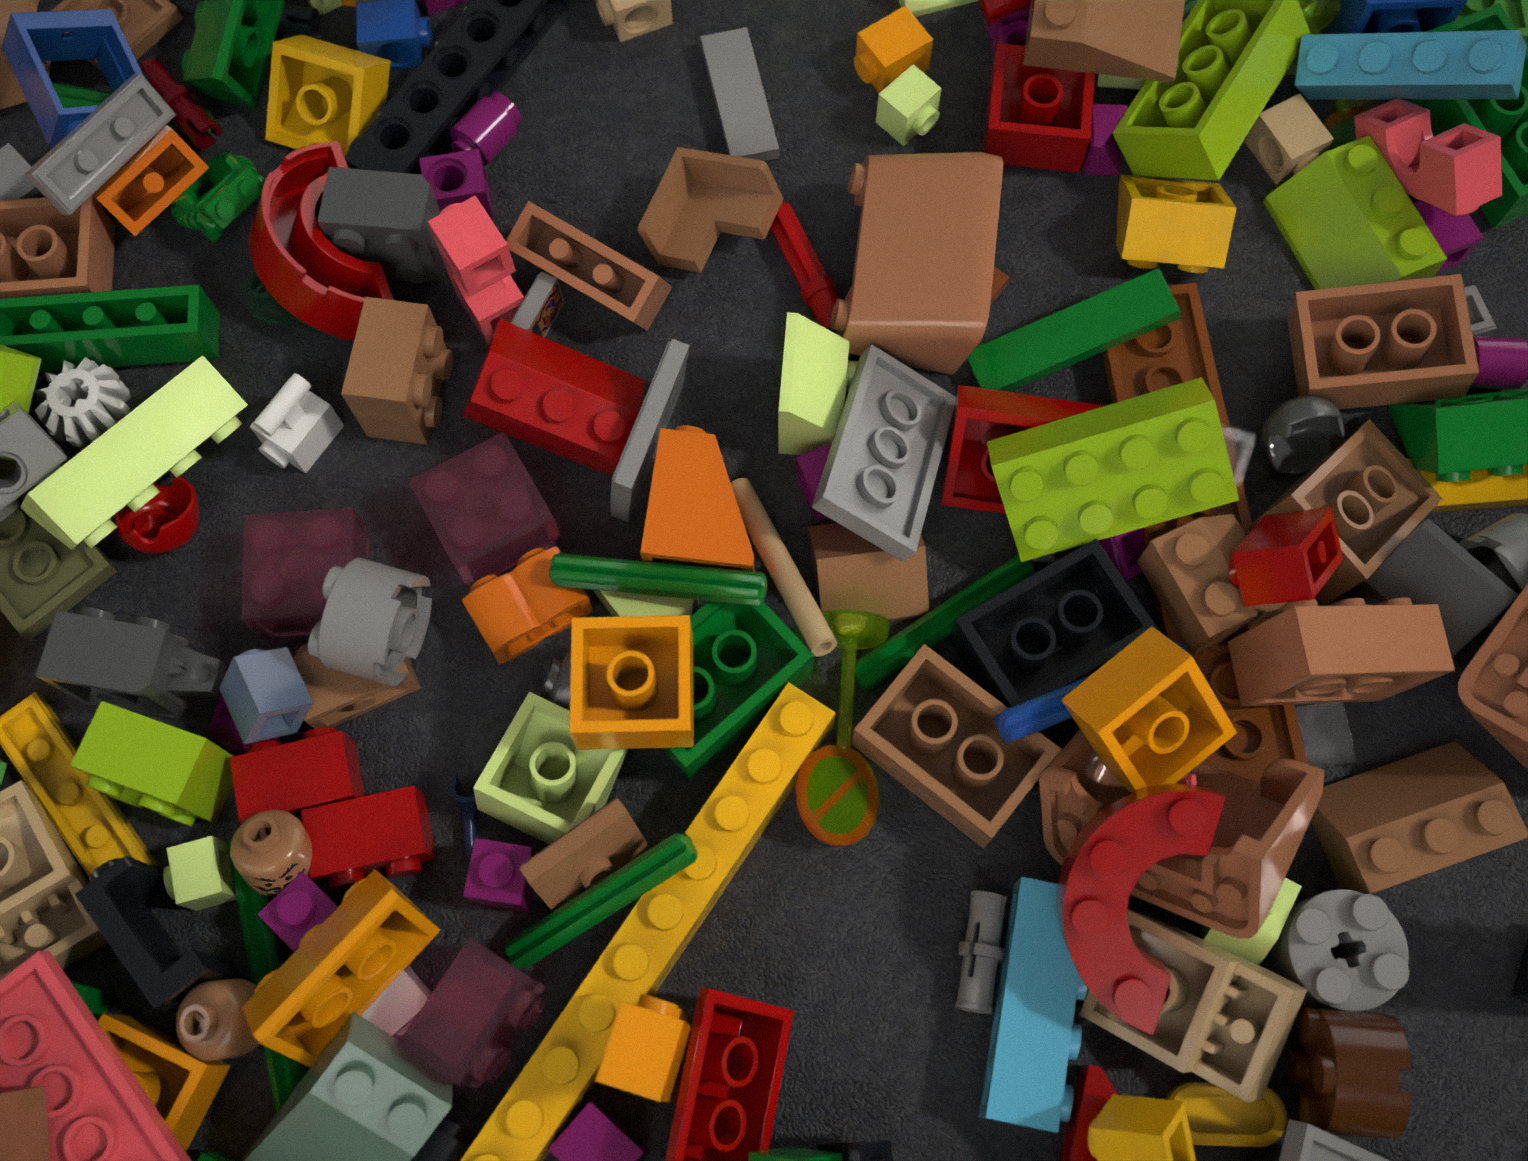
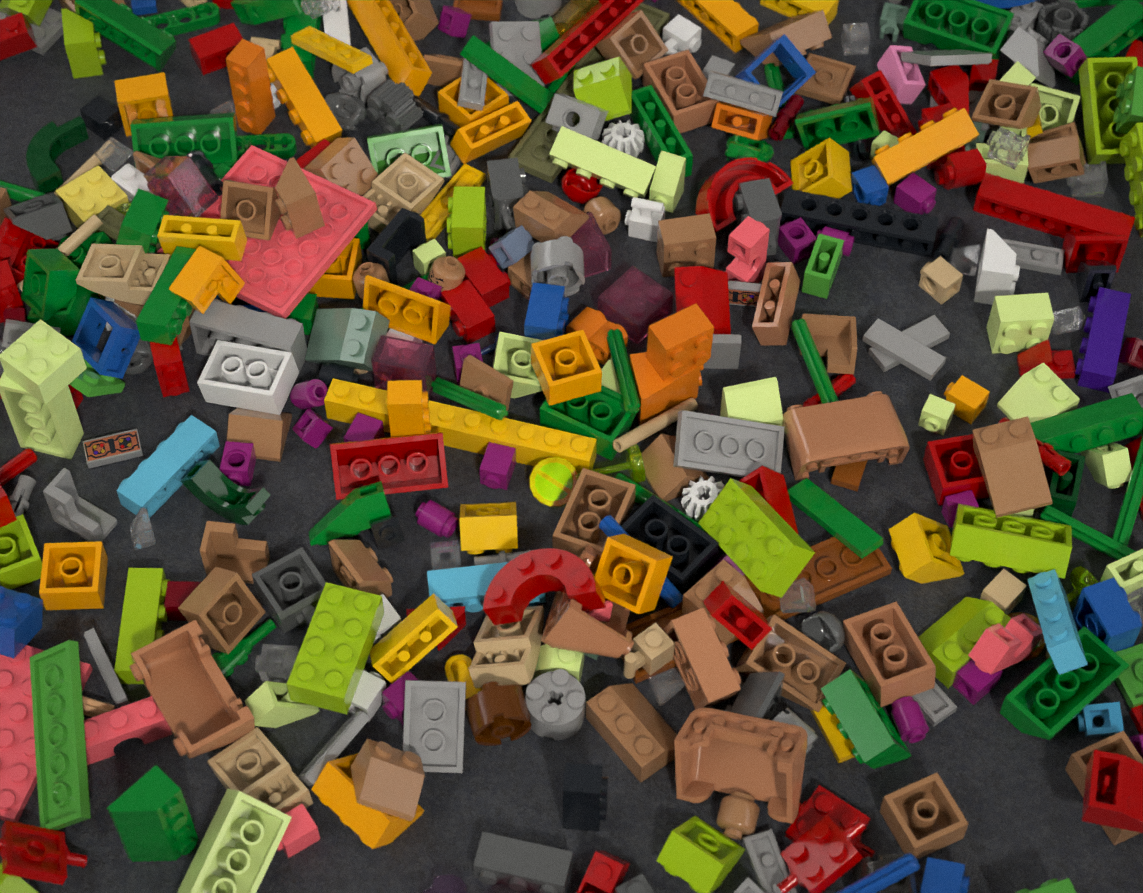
camera: 70 degrees right, 15 degrees down
(232, 351) = (668, 180): none -> yellowish green slope
(234, 598) = (547, 216): none -> medium nougat slope
(243, 493) = (604, 212): none -> medium nougat head
(463, 683) = (546, 312): none -> blue brick
(537, 162) = (822, 266): none -> bright green brick
(684, 441) = (680, 342): none -> orange brick
(752, 249) = (813, 361): none -> green axle
(760, 103) = (904, 349): none -> light grey tile
(765, 893) = (497, 466): none -> magenta brick
(847, 1055) = (437, 519): none -> magenta brick
(896, 954) = (488, 527): none -> yellow slope
(951, 1066) = (441, 547): none -> clear plate
(972, 518) = (700, 496): none -> white gear
(1289, 730) = (650, 650): none -> tan brick

